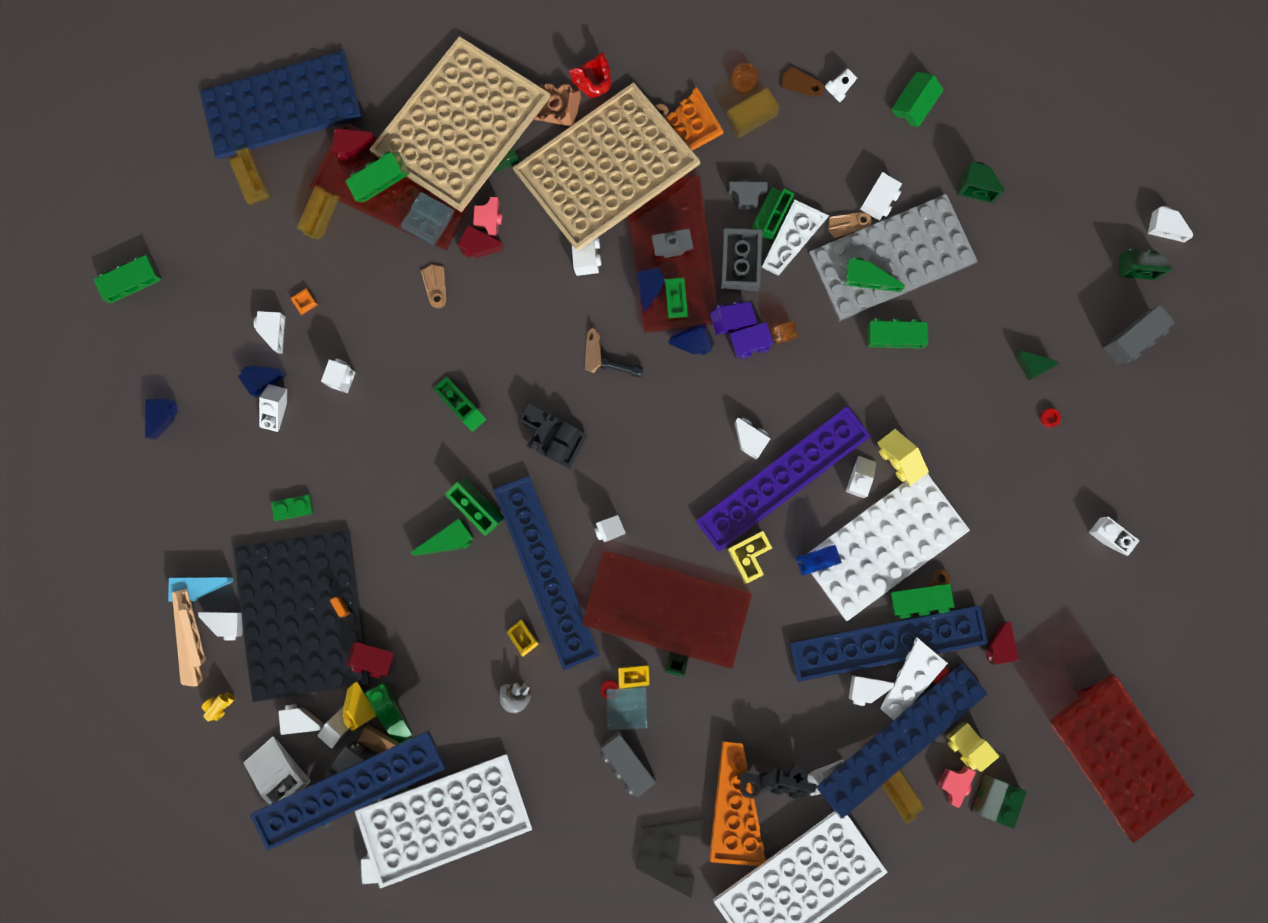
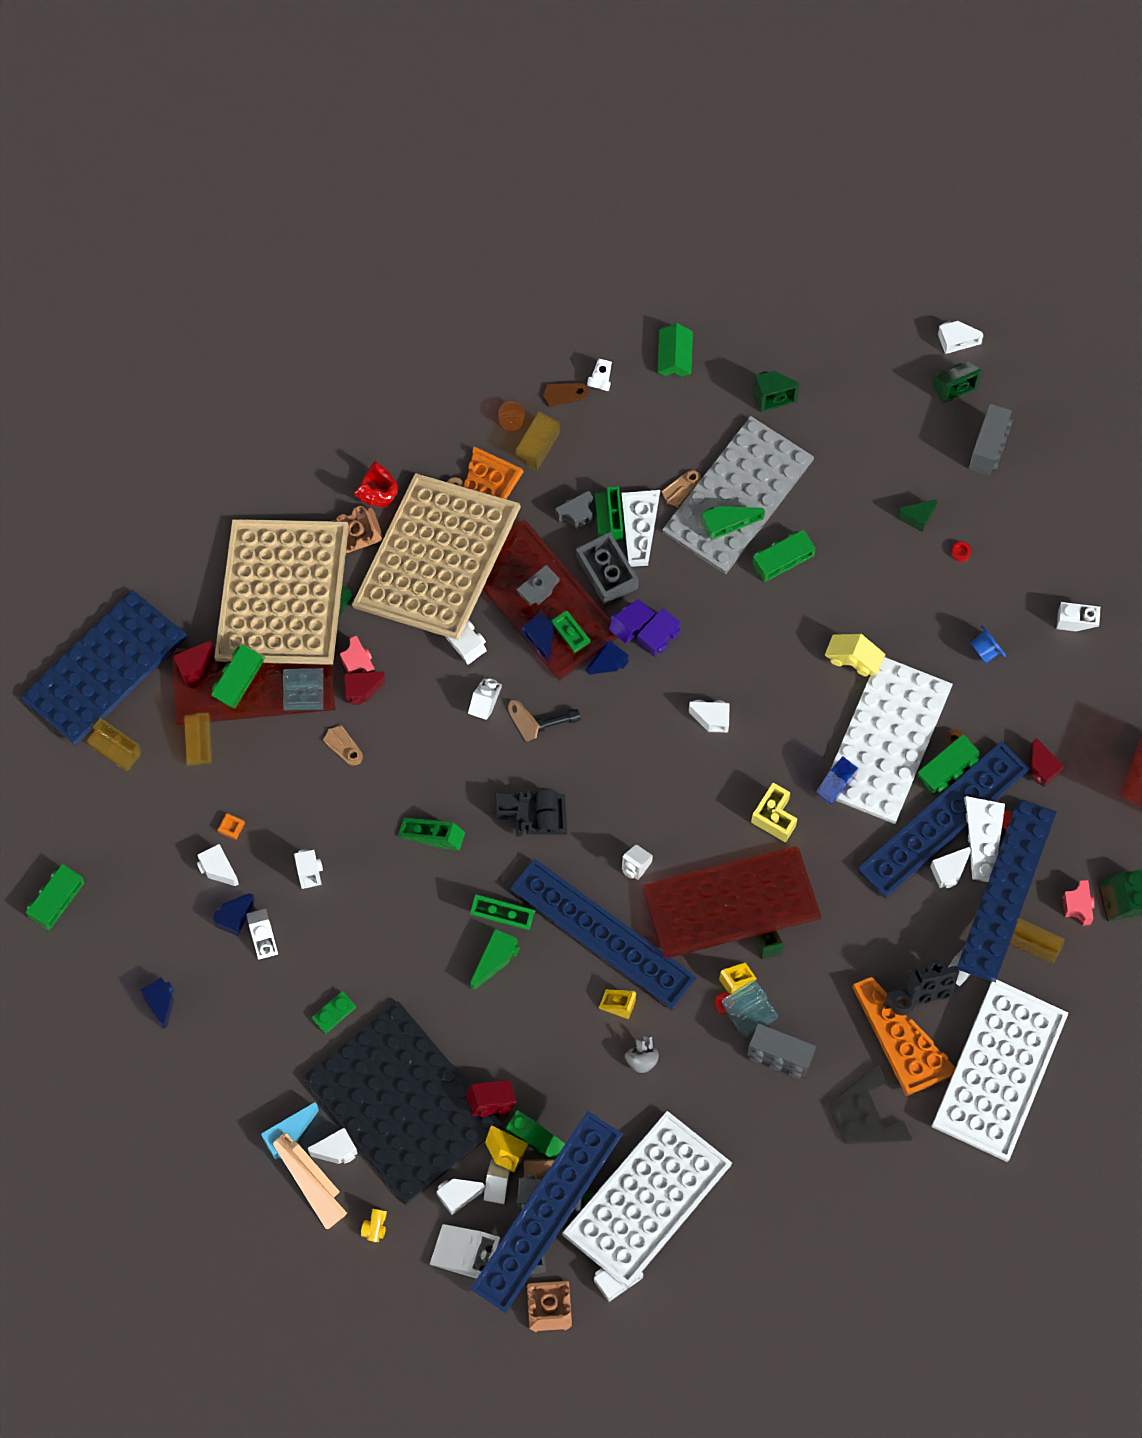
camera: 30 degrees left, 15 degrees down
(315, 856) = (549, 1306): none -> nougat slope
(340, 606) = (435, 1066): orange tile -> none
(572, 313) = (484, 698): none -> white slope
(782, 479) = (761, 734): dark purple plate -> none
(784, 333) = (684, 608): clear orange wheel -> none
(861, 477) = (830, 694): white slope -> none
(880, 197) = (696, 448): white brick -> none
(974, 751) = (1070, 863): light yellow brick -> none
(1019, 516) = (986, 646): none -> blue piece

